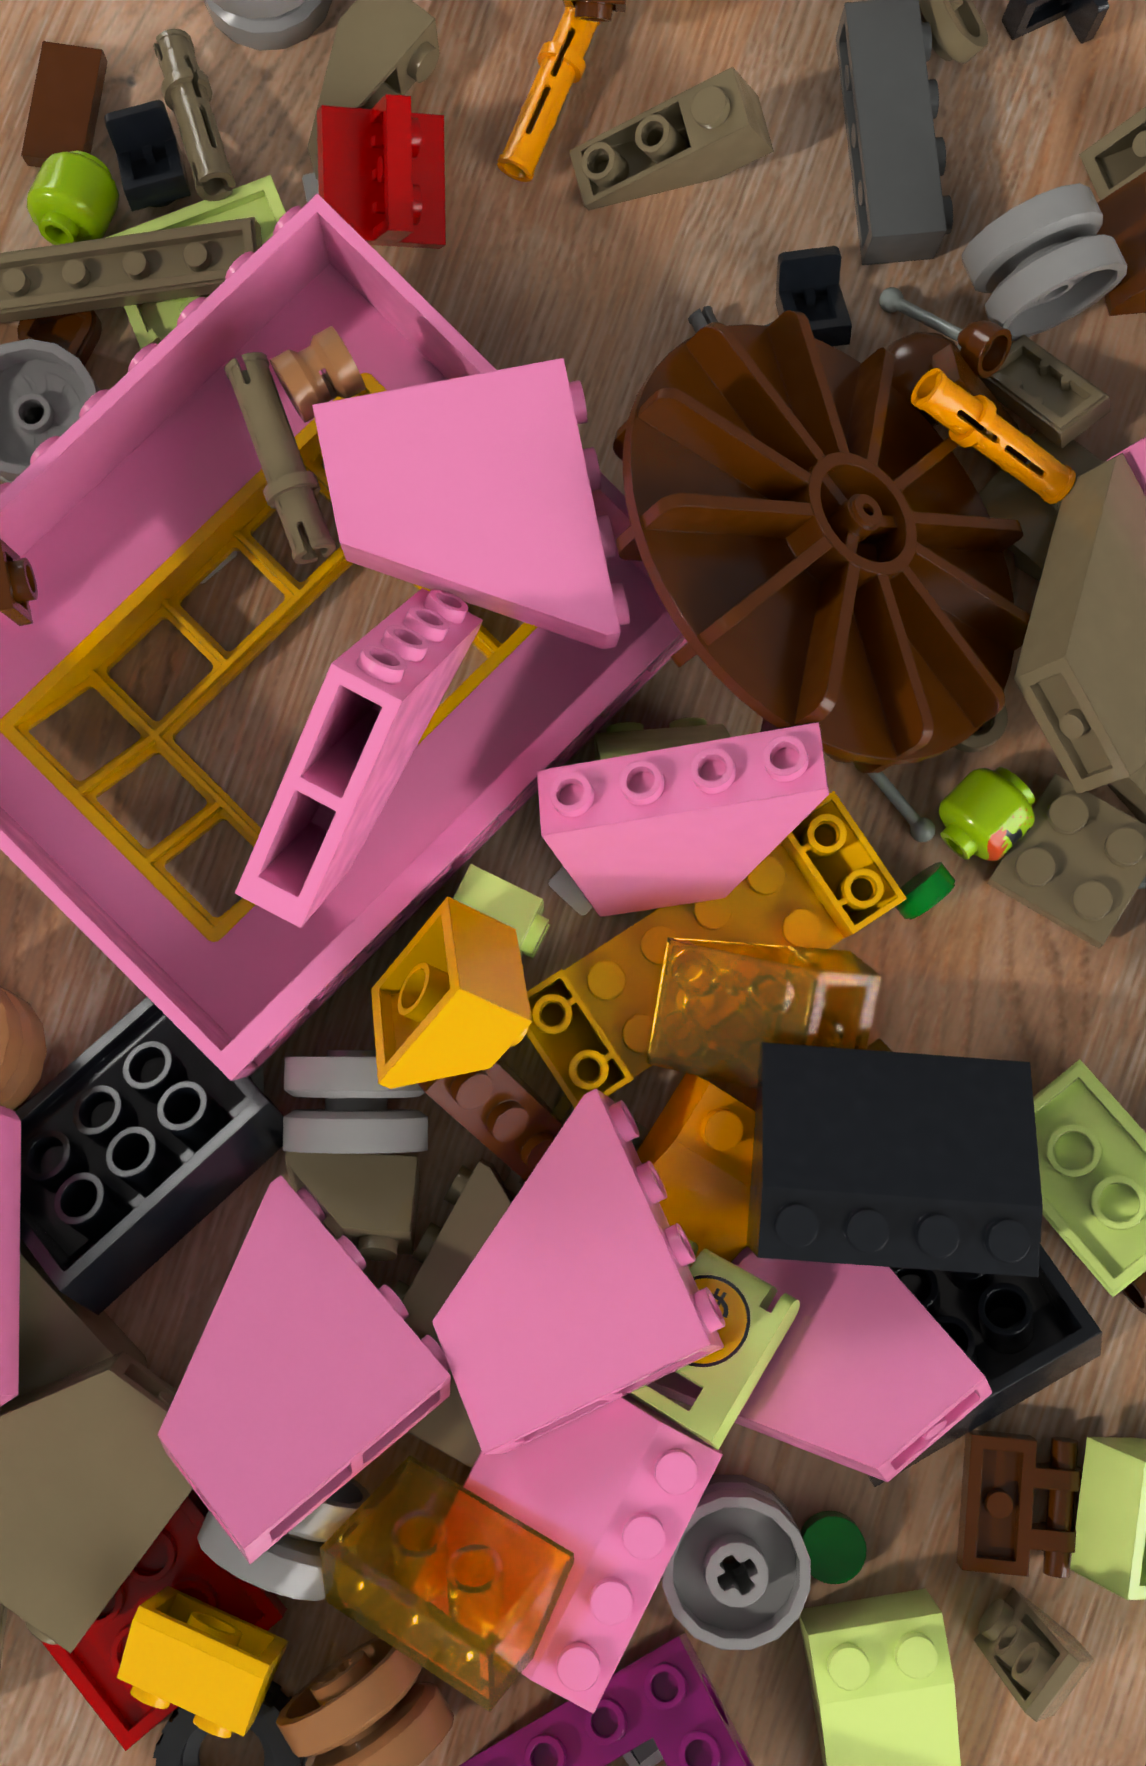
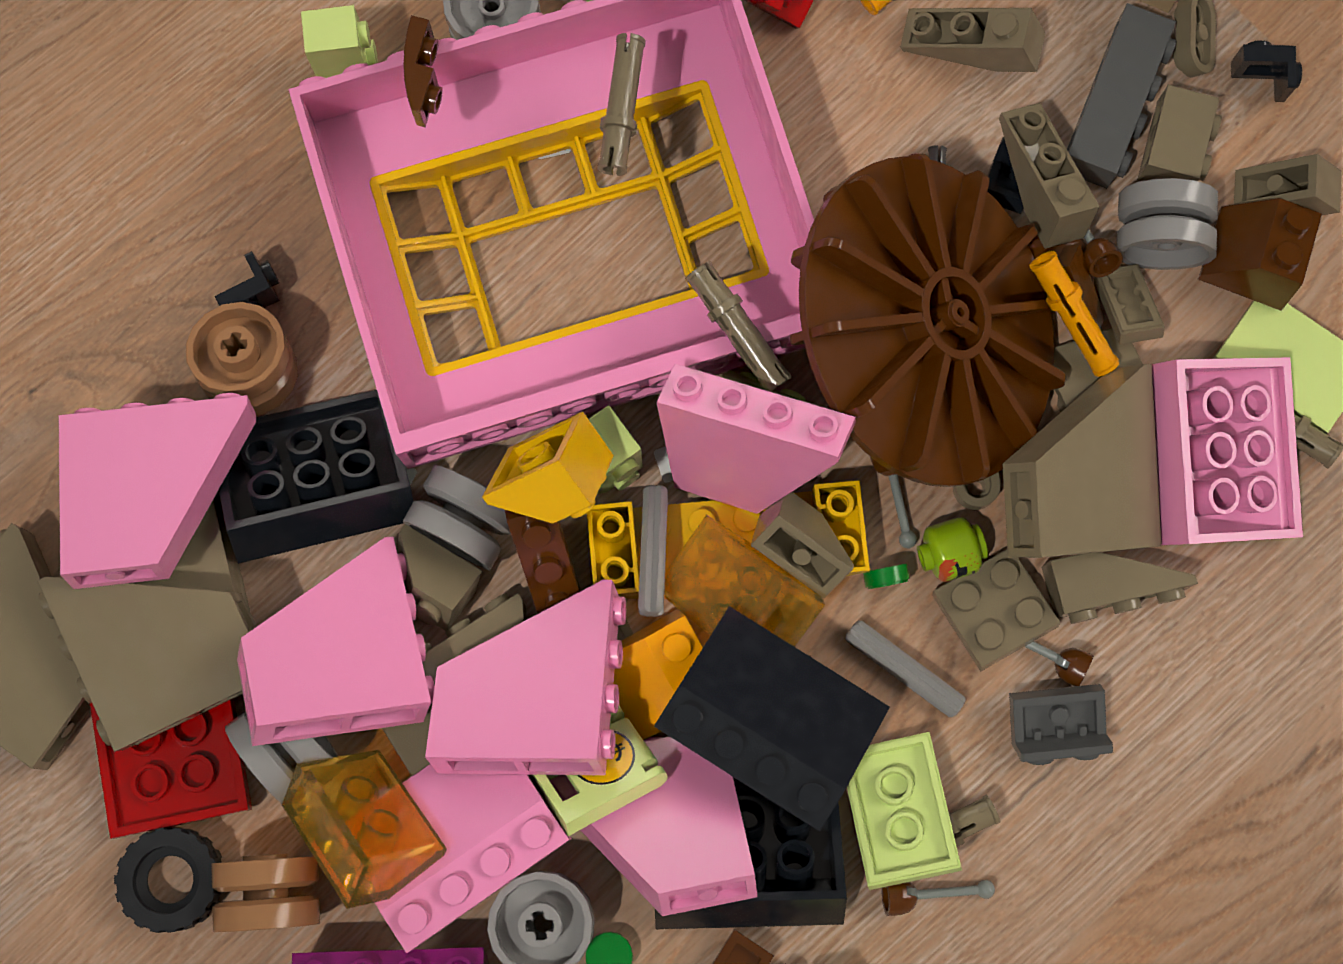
camera: 30 degrees right, 5 degrees down
(200, 1661) = (186, 801): yellow slope -> none
(301, 376) = (658, 66): medium nougat wheel -> none
(355, 752) = (573, 293): bright pink slope -> none
(479, 496) = (727, 185): bright pink slope -> none
(601, 683) = (738, 327): none -> dark tan pin
(623, 1018) = (653, 551): none -> light grey axle
(808, 912) = (802, 544): none -> dark tan slope
(866, 278) = (1047, 177): none -> dark tan slope
(996, 144) = (1180, 136): none -> dark tan brick
(1005, 993) = (905, 669): none -> light grey axle

